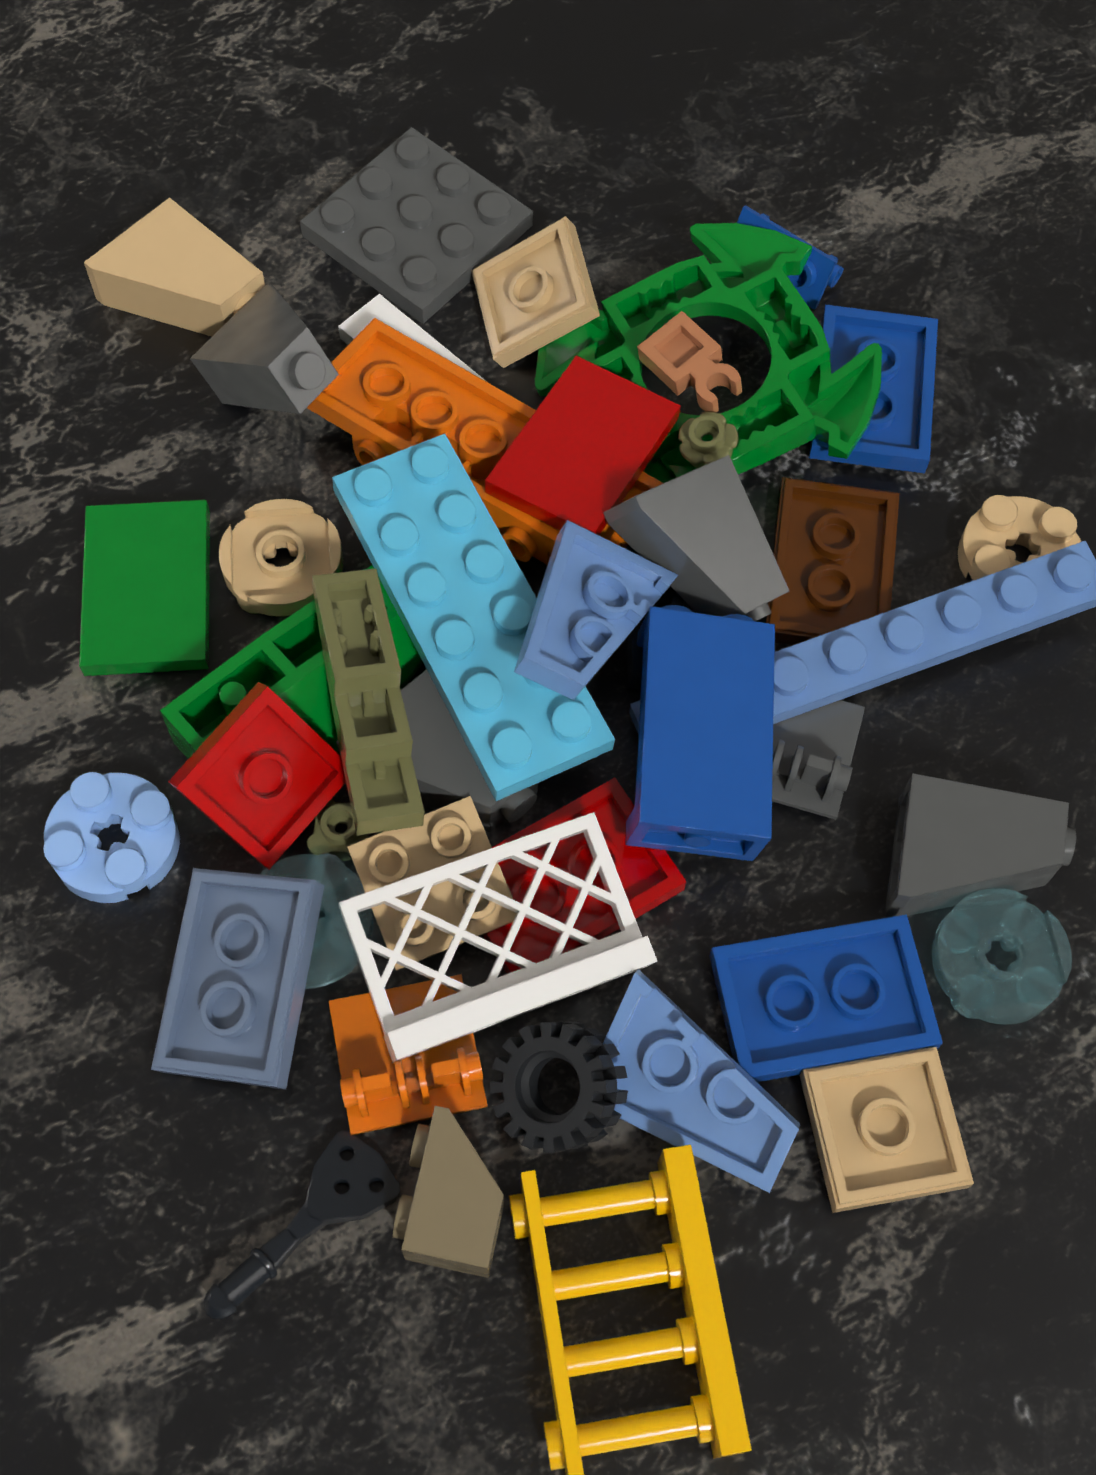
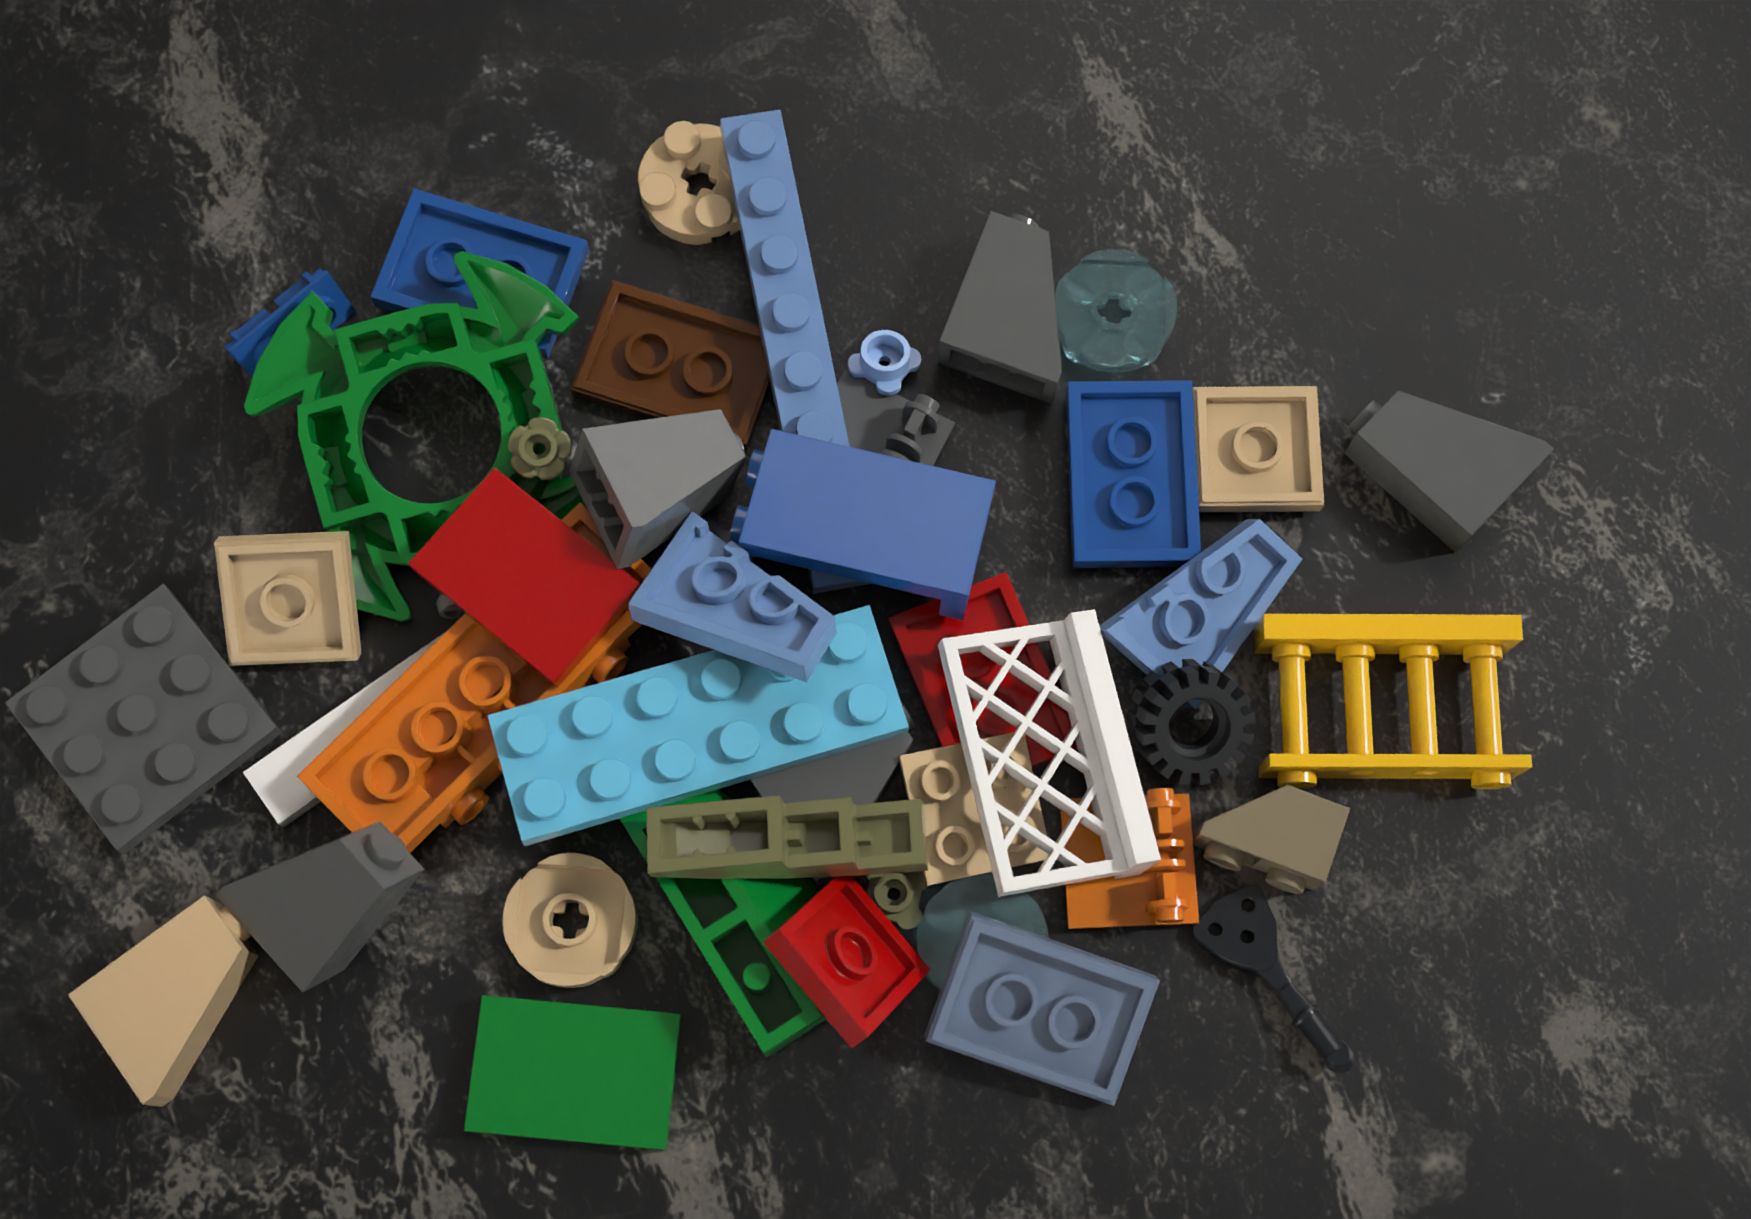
camera: 80 degrees left, 10 degrees up
(127, 867) = (900, 1118): light blue plate -> none
(687, 357) = (435, 453): nougat plate -> none
(893, 730) = (889, 347): none -> light blue plate
(921, 1350) = (1442, 462): none -> dark grey slope

